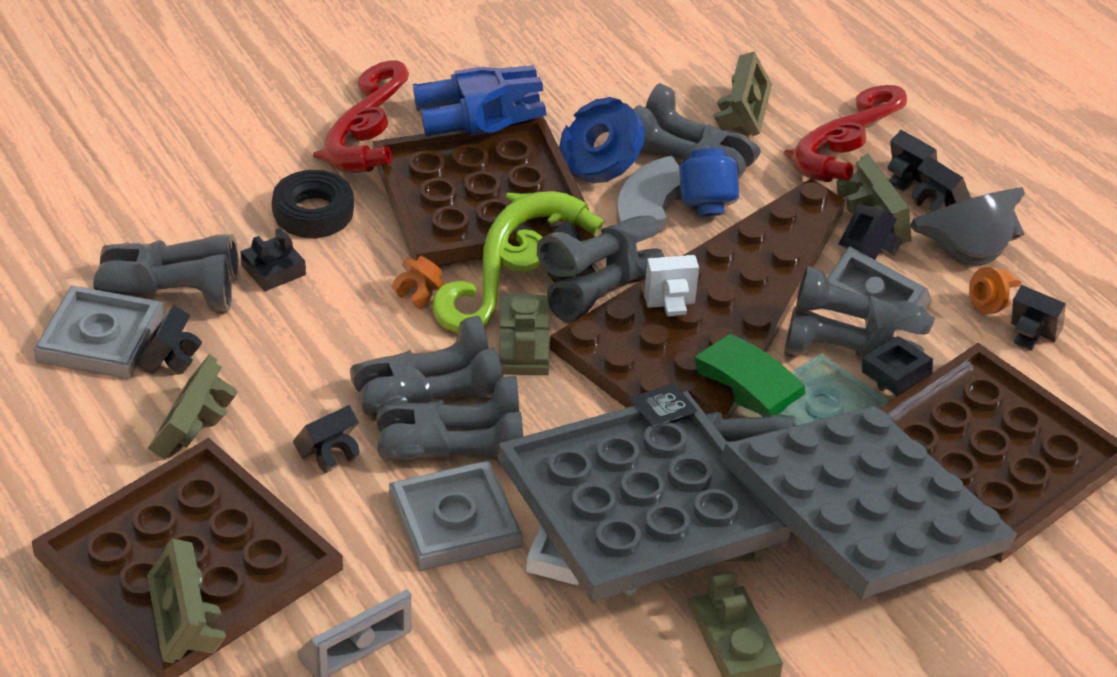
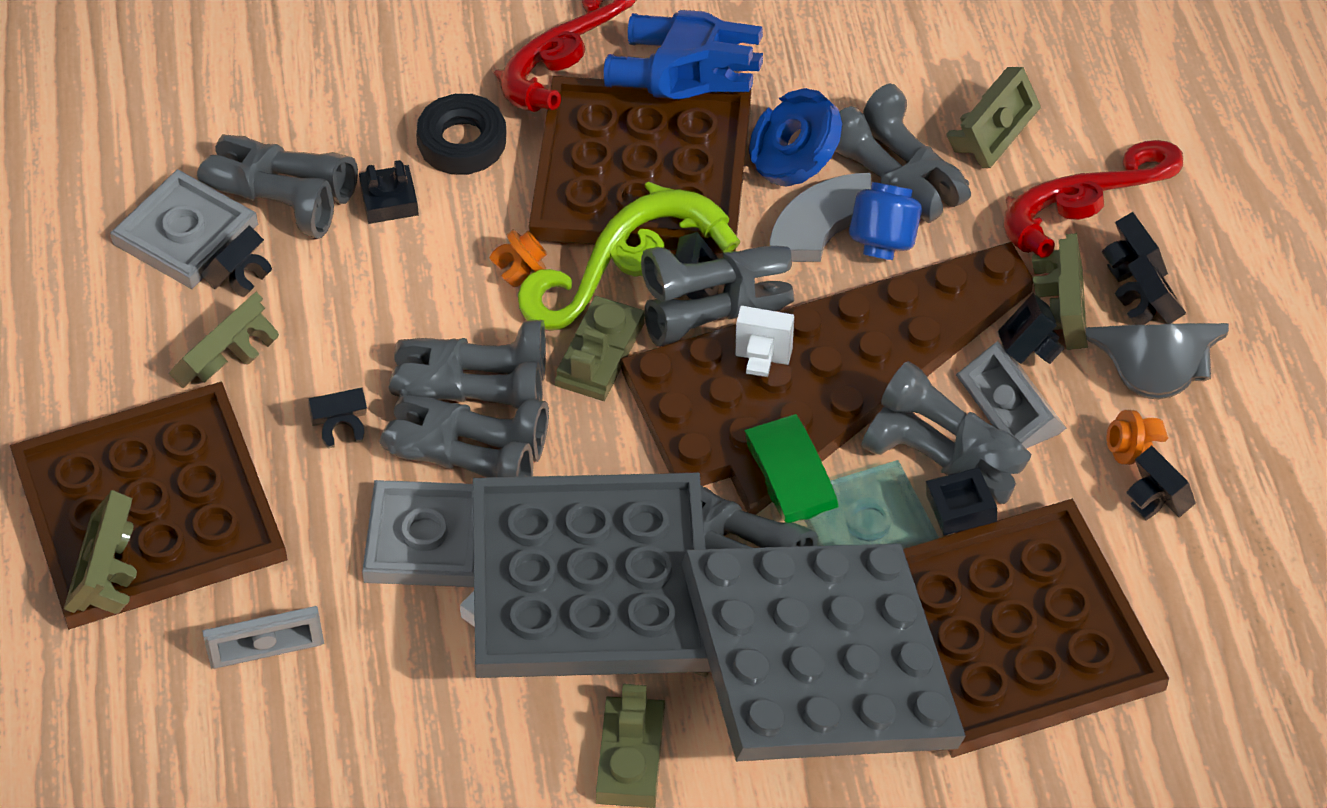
camera: 25 degrees right, 10 degrees up
(663, 404) = (664, 481): black sticker -> none

